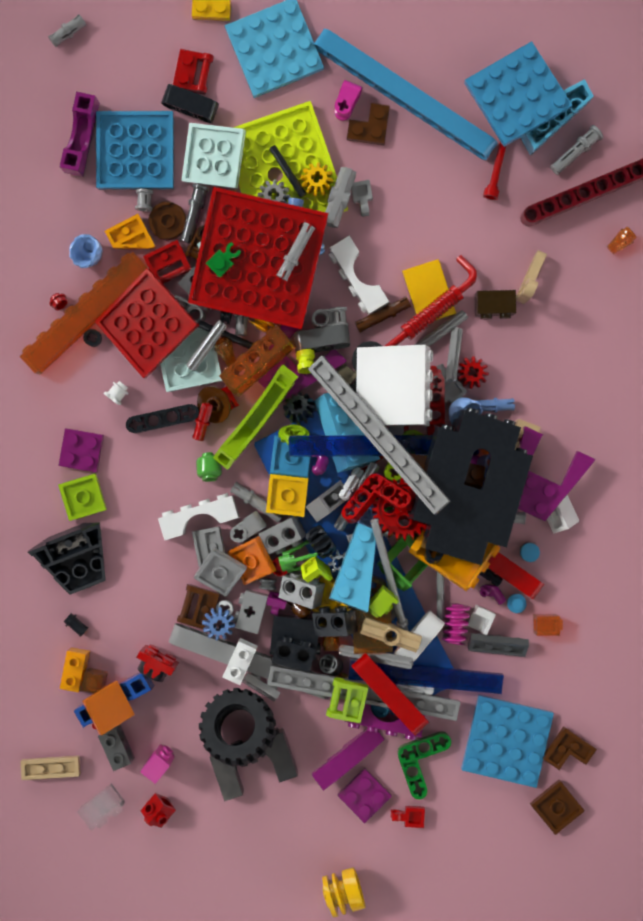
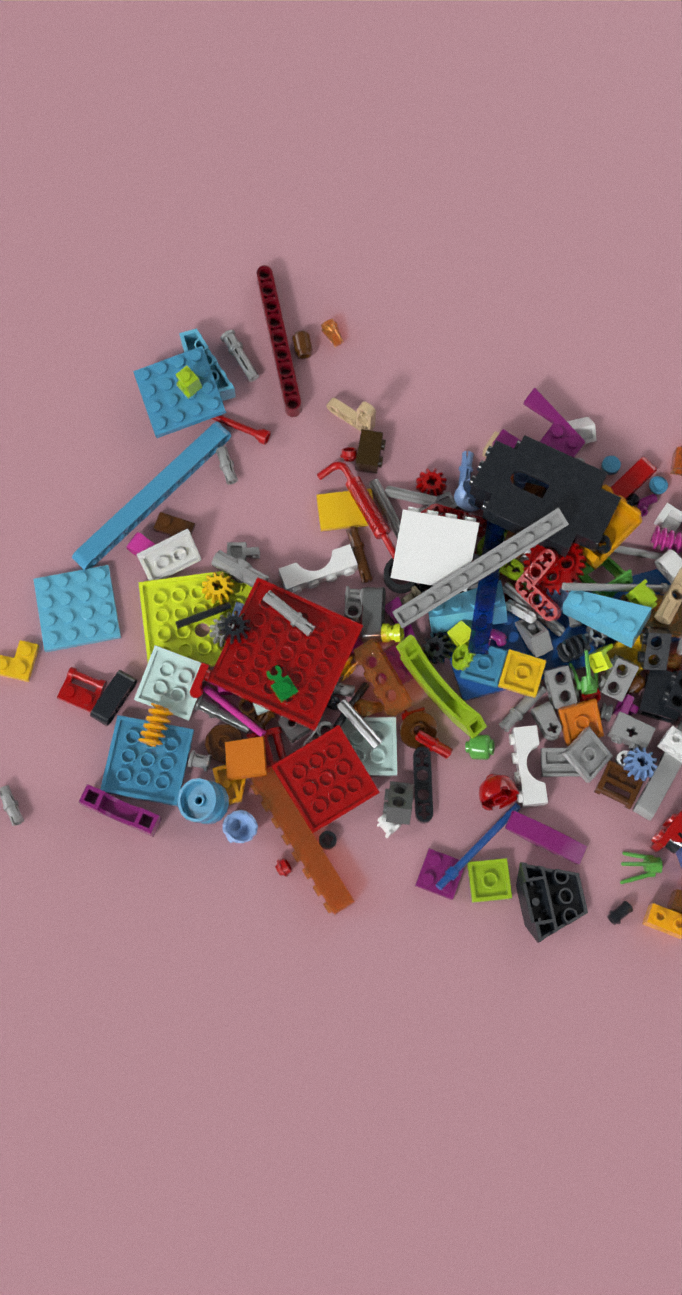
camera: 75 degrees left, 15 degrees down
(80, 460) = (452, 872): none -> blue bar
(101, 210) = (203, 801): none -> dark azure wheel
(125, 648) = (650, 864): none -> bright green plant
(132, 543) = (546, 837): none -> magenta slope
(136, 397) = (399, 802): none -> dark grey brick
(151, 243) = (245, 758): none -> orange tile
(165, 150) = (155, 726): none -> light orange piece
(168, 490) = (496, 791): none -> red cylinder
(193, 229) = (234, 711): none -> dark pink bar
(213, 180) = (202, 674): none -> red plate
(261, 204) = (227, 631): none -> black gear
(314, 427) = (459, 633): none -> neon yellow panel
(341, 124) = (169, 556): none -> white tile
(452, 162) = (226, 465): none -> light grey pin
(488, 283) = (349, 454): none -> red plate
(525, 97) = (188, 382): none -> lime brick
(601, 212) = (302, 344): none -> reddish brown brick

